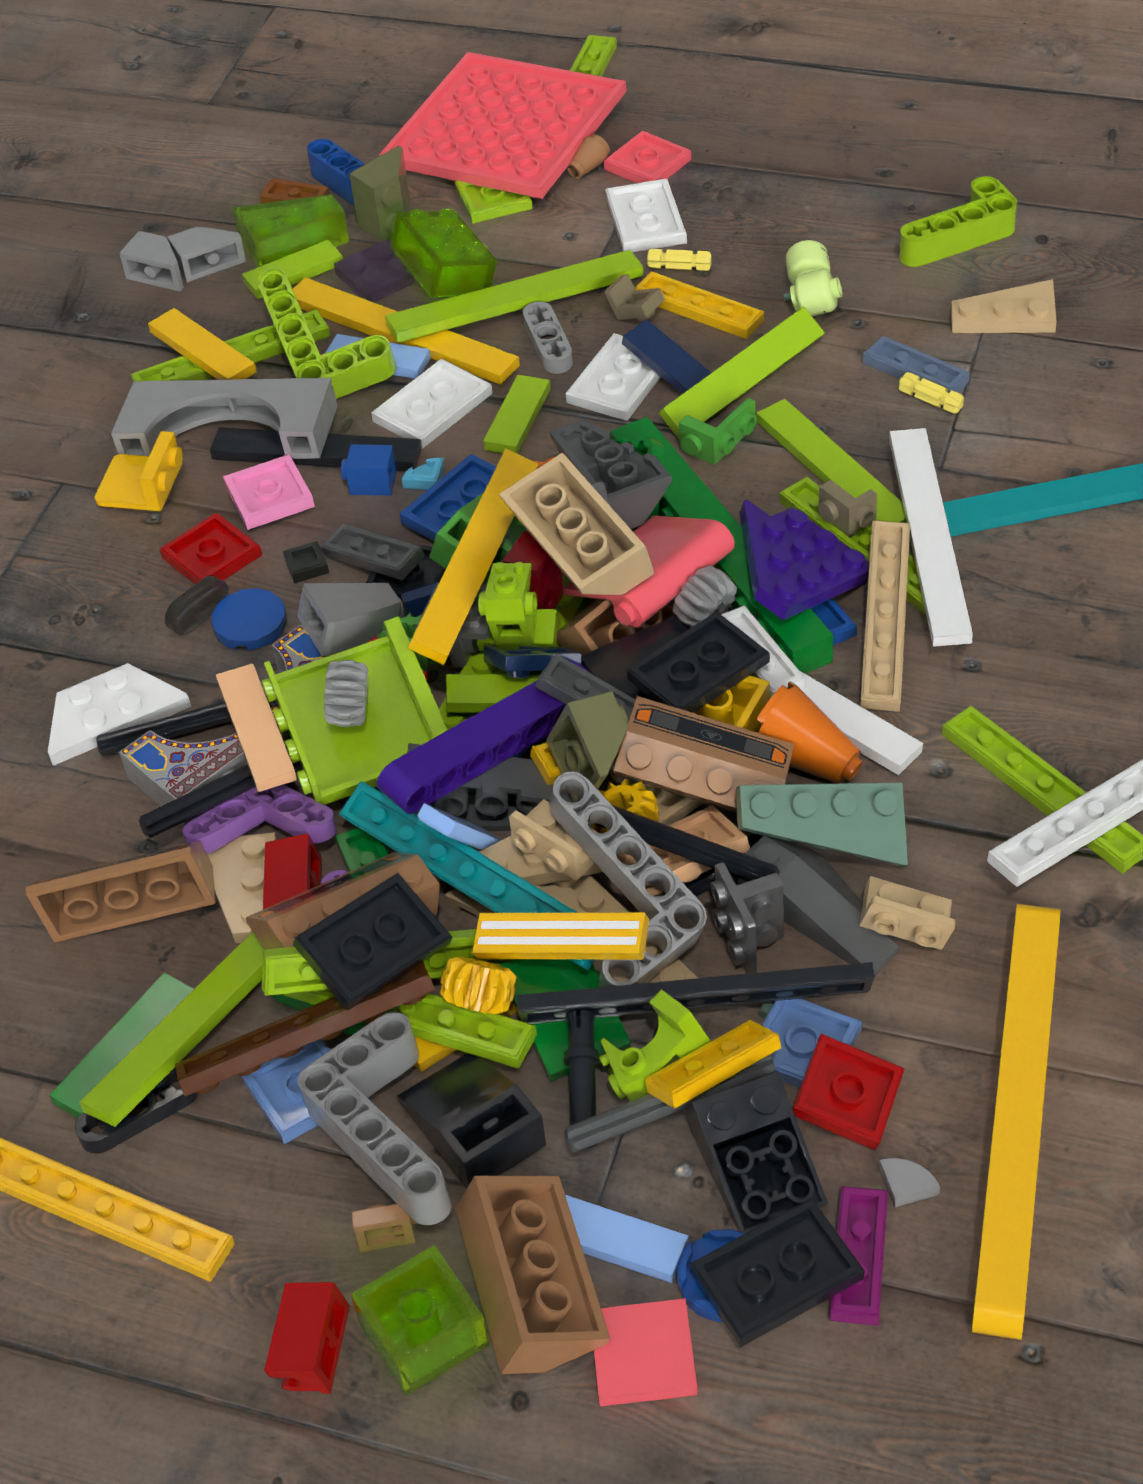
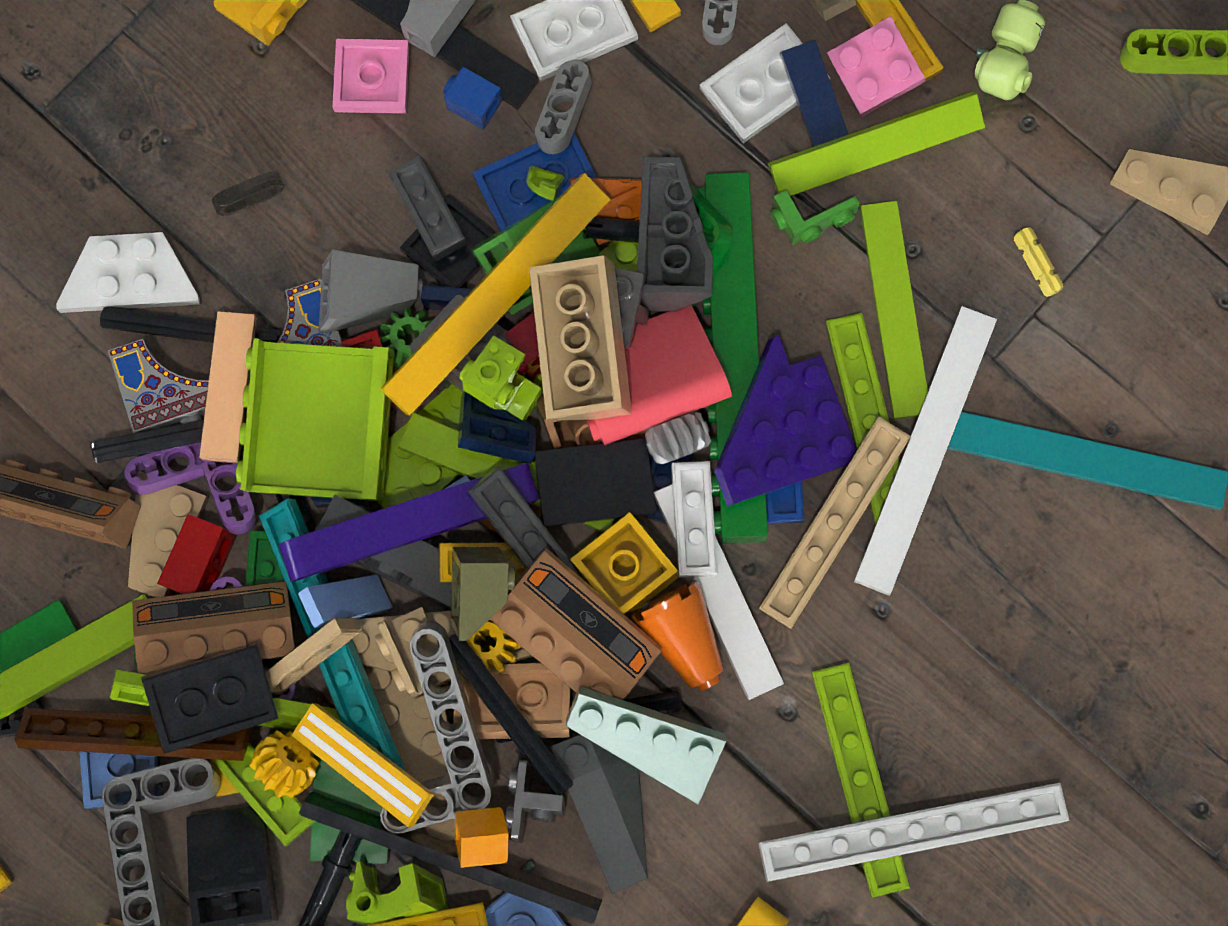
camera: 25 degrees right, 30 degrees up
(211, 549) = (291, 123): red tile -> none
(249, 619) = (289, 228): blue tile -> none
(305, 562) = (368, 181): pearl dark grey tile -> none
(346, 693) = (308, 409): light grey gear -> none
(424, 475) = (521, 123): medium azure tile -> none
(455, 443) = (567, 120): none -> light grey beam
(458, 868) = (311, 653): none -> tan tile
(474, 486) = (544, 182): none -> lime tile
(517, 414) = (643, 86): lime tile -> none
(698, 664) = (625, 524): black tile -> none
(710, 328) = (876, 66): none -> bright pink plate
(716, 947) = (481, 837): none -> light orange panel
(844, 510) = (857, 381): dark tan bracket -> none
(898, 359) = (1045, 216): sand blue tile -> none
(906, 913) = (667, 855): tan bracket -> none

